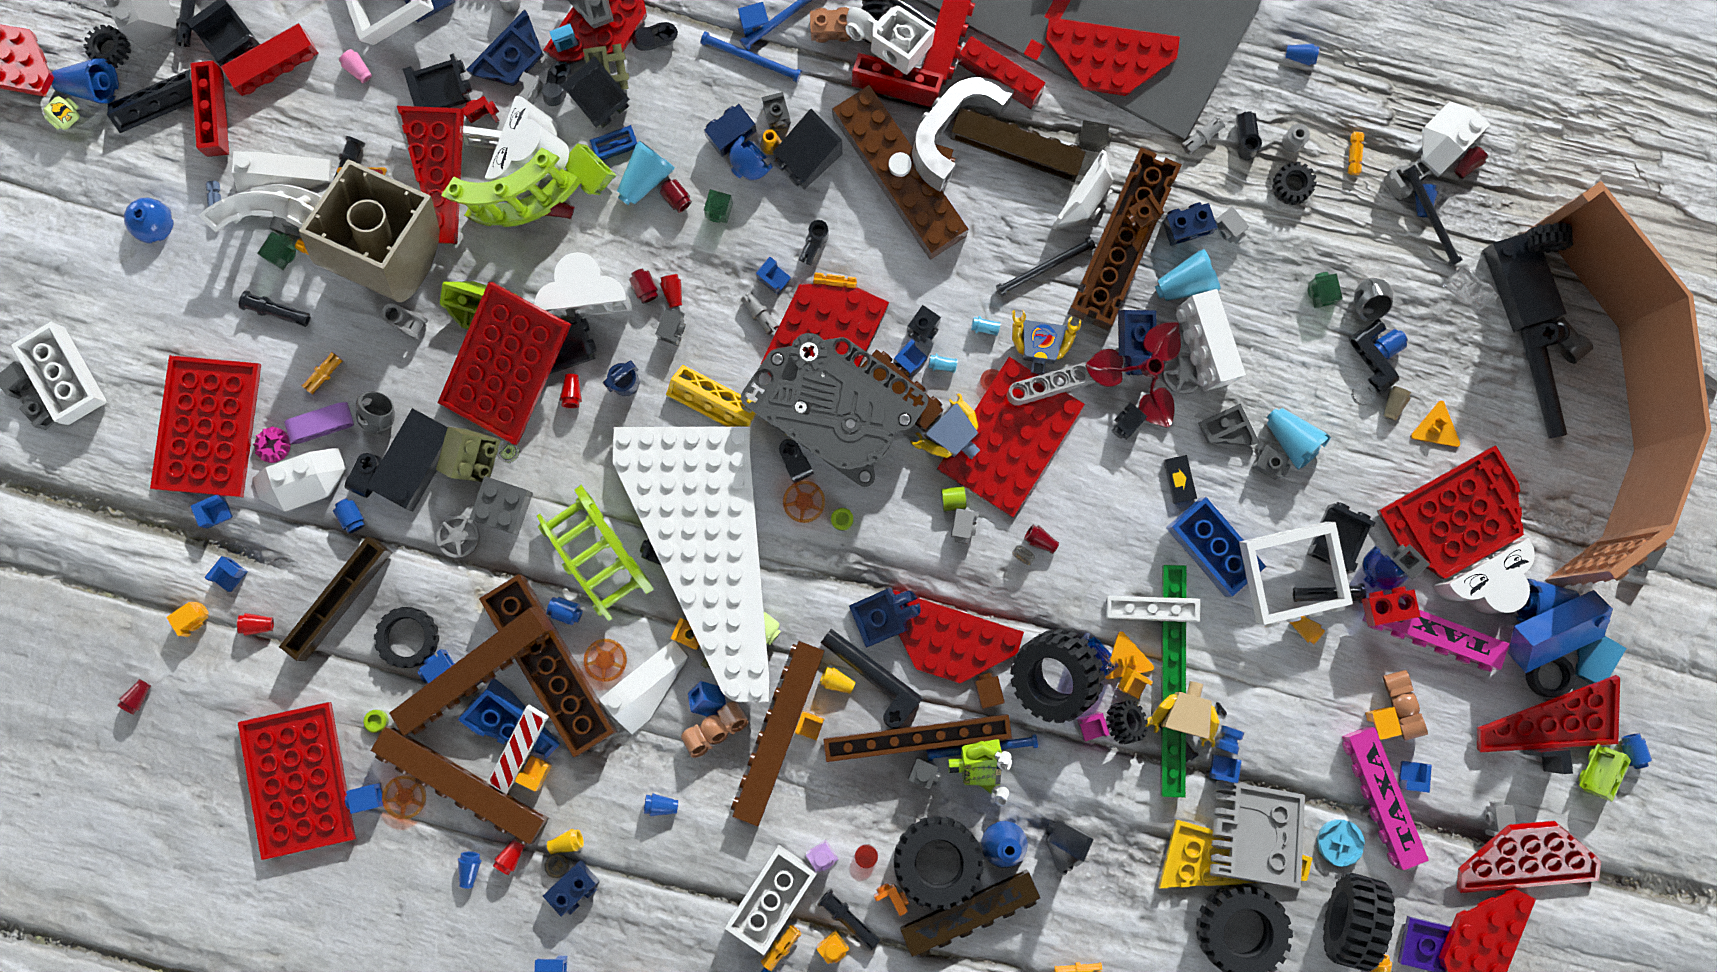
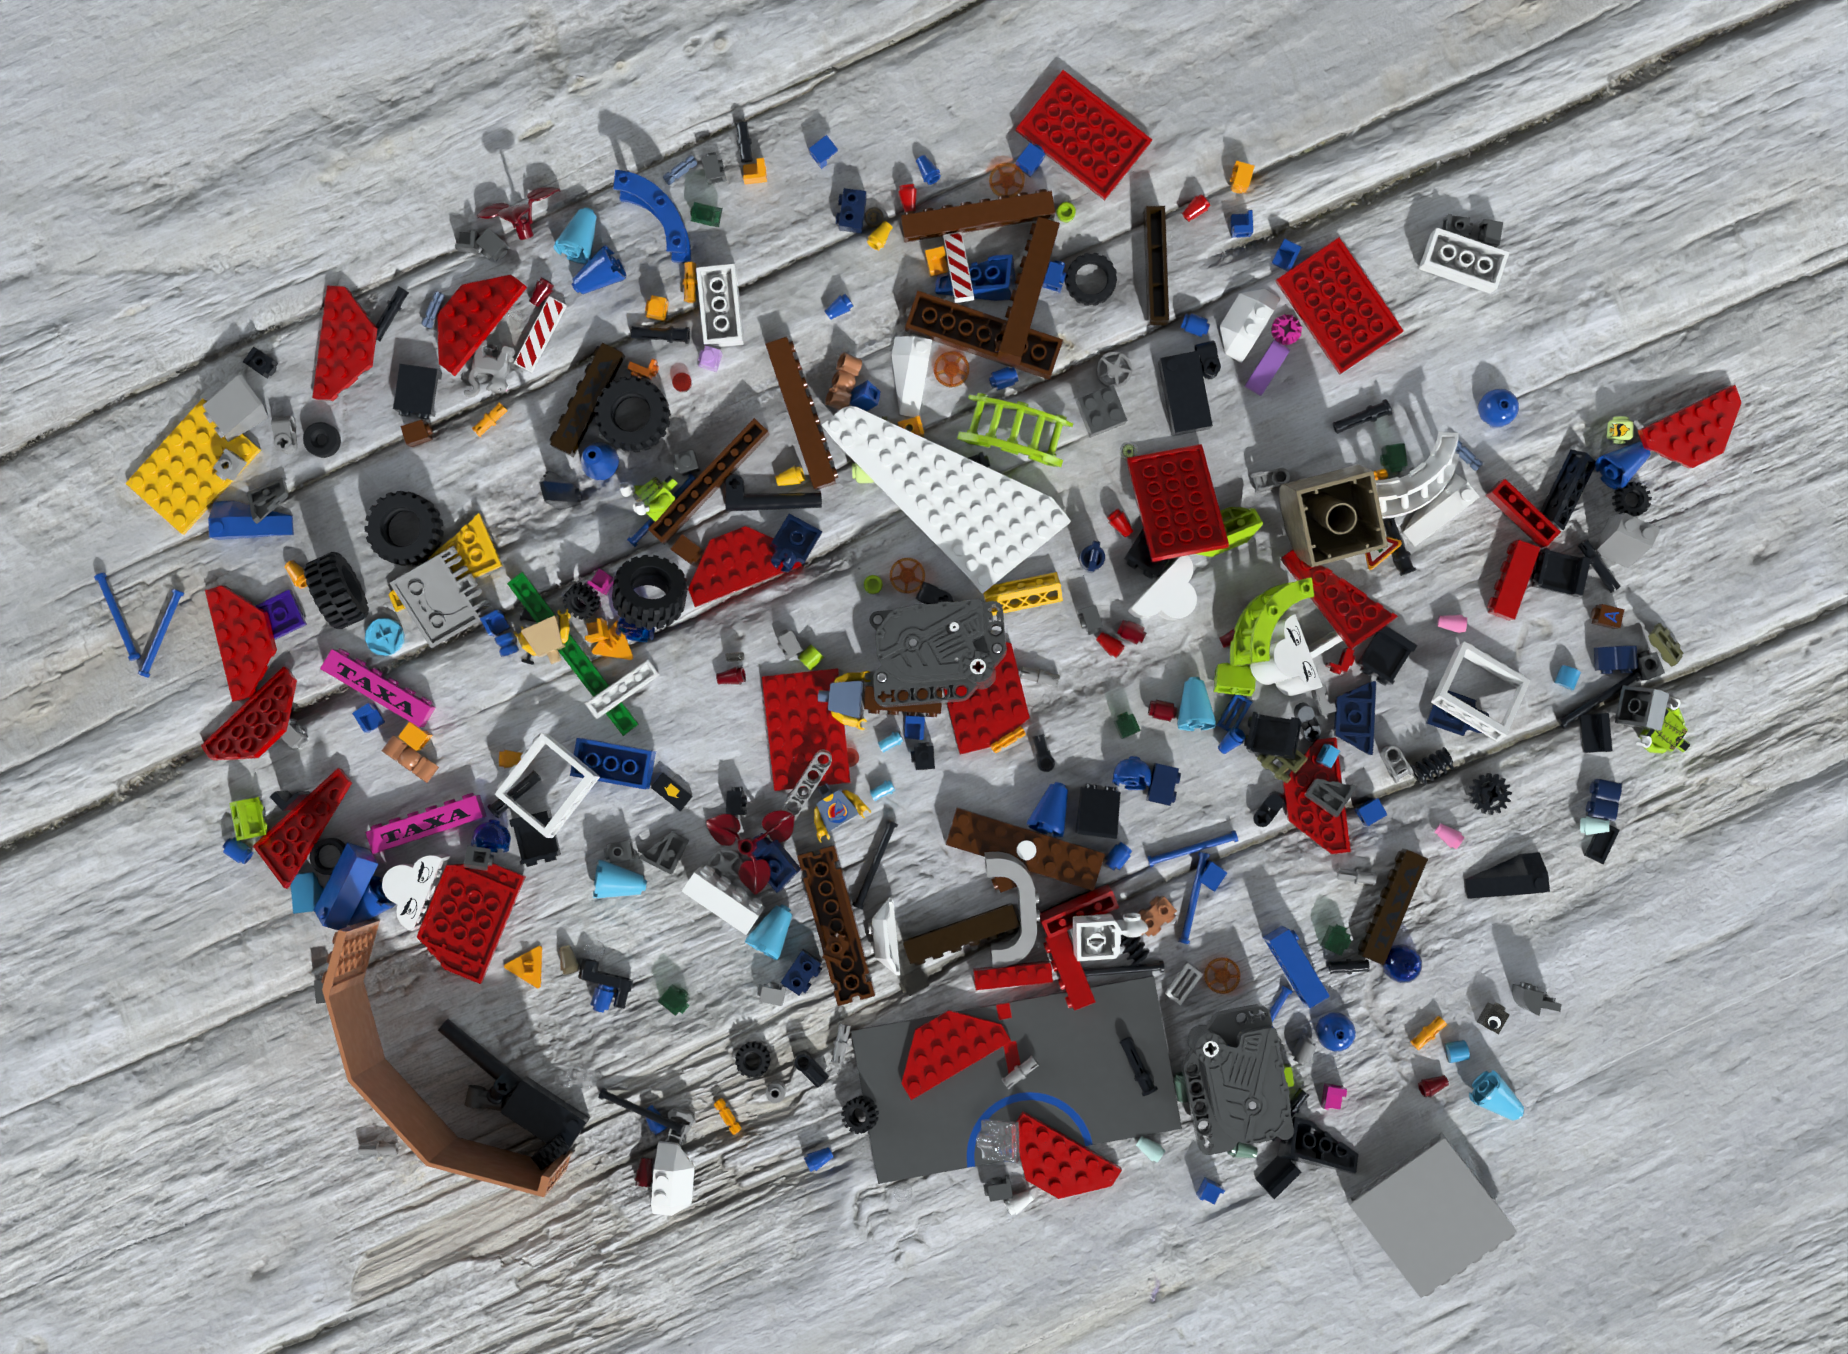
camera: 140 degrees right, 5 degrees up
(134, 697) = (1232, 101): dark red cone -> none
(322, 373) = (1294, 401): light orange pin -> none
(375, 415) = (1234, 403): dark grey helmet -> none
(467, 454) = (1151, 425): olive slope -> none
(635, 119) = (1231, 740): none -> blue cone
(769, 142) = (1123, 798): light orange cone -> none
(772, 103) = (1150, 825): dark grey brick -> none
(772, 276) = (1051, 708): blue panel -> none
(809, 725) = (785, 434): light orange panel -> none
(822, 100) = (1118, 856): none -> blue brick
(848, 185) = (1051, 811): none -> blue cone
(1225, 59) = (853, 1122): none -> black tyre
(1373, 295) = (640, 1023): dark grey helmet -> none
(1391, 609) = (464, 809): red brick -> none

